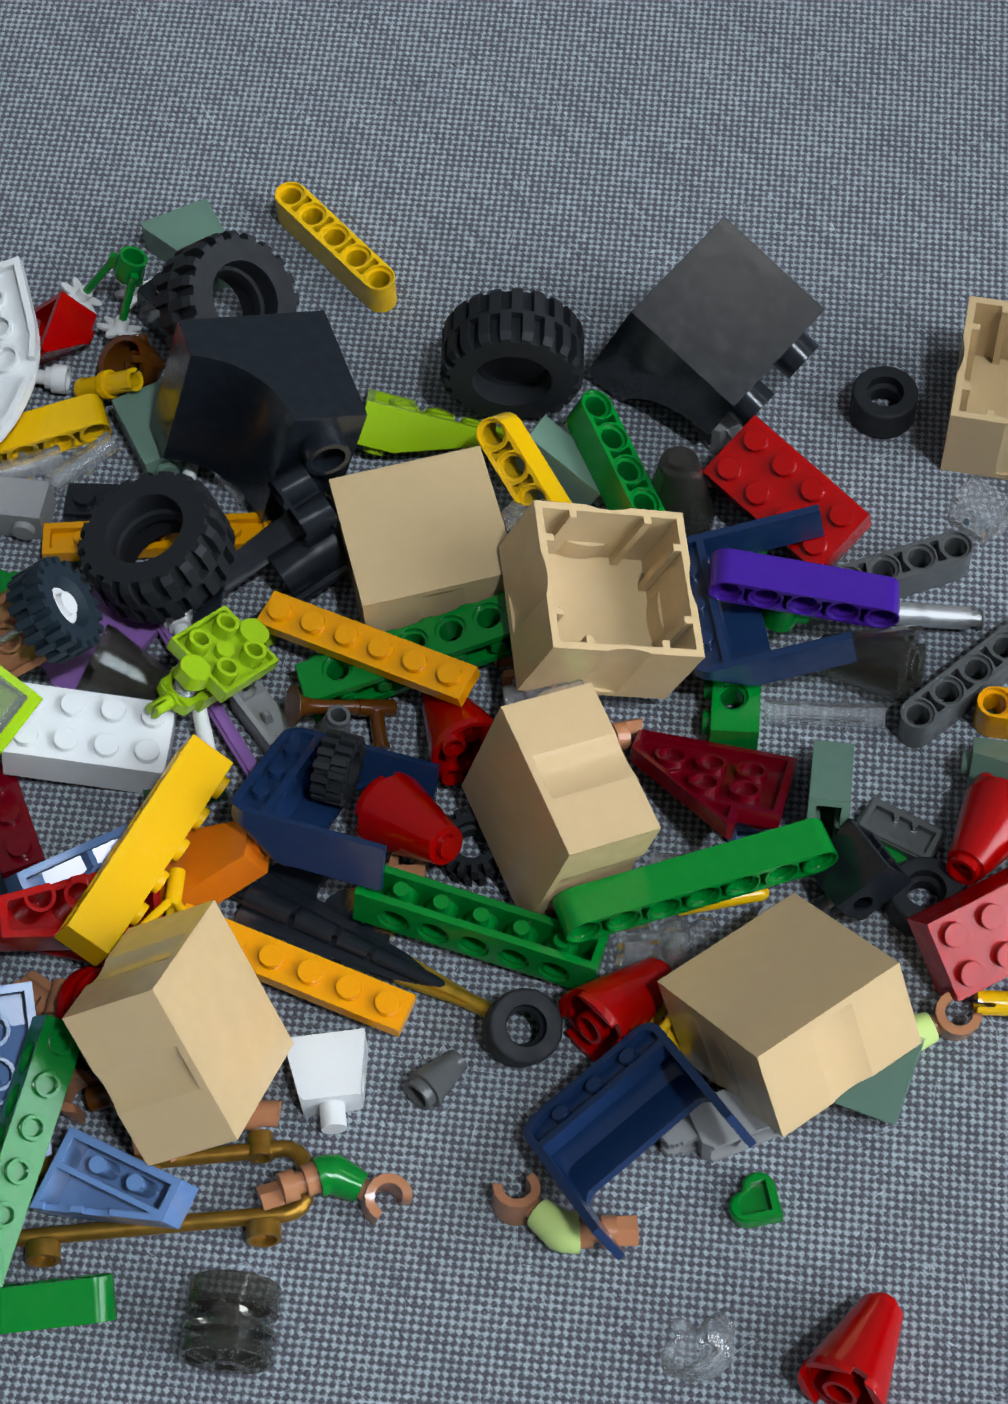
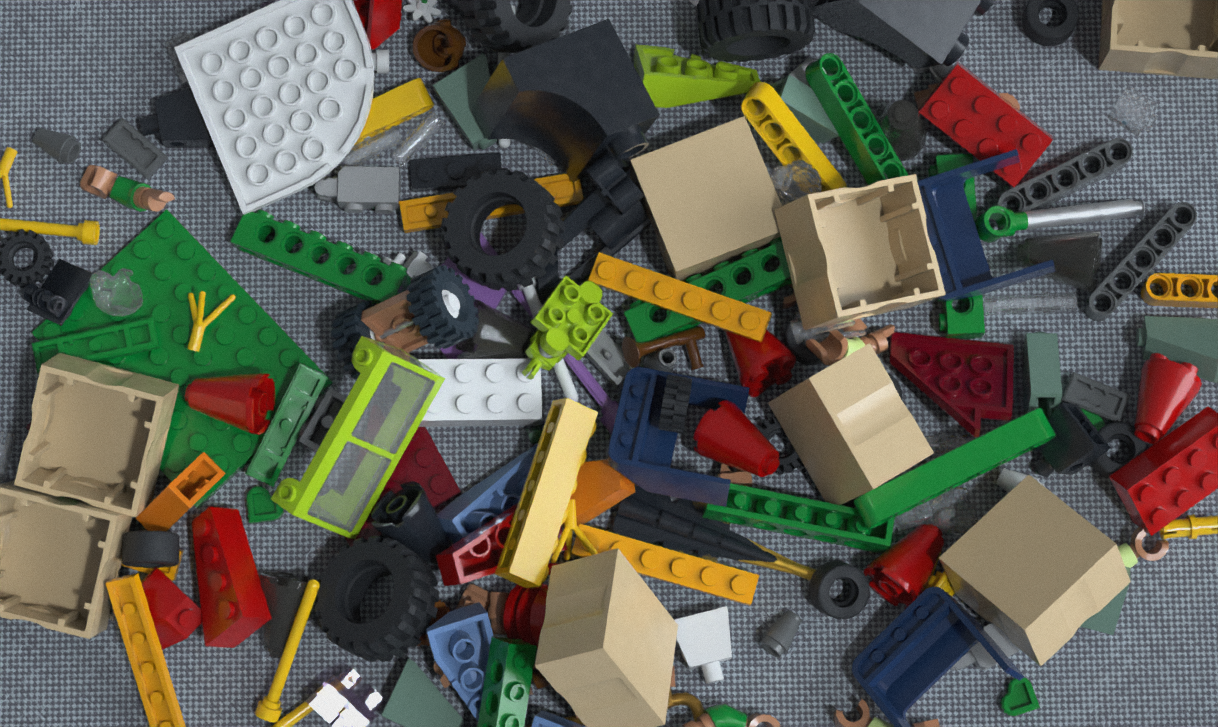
camera: 10 degrees left, 20 degrees up
(110, 384) = (426, 68): yellow pin -> none
(804, 588) = (1011, 218): dark purple beam -> none

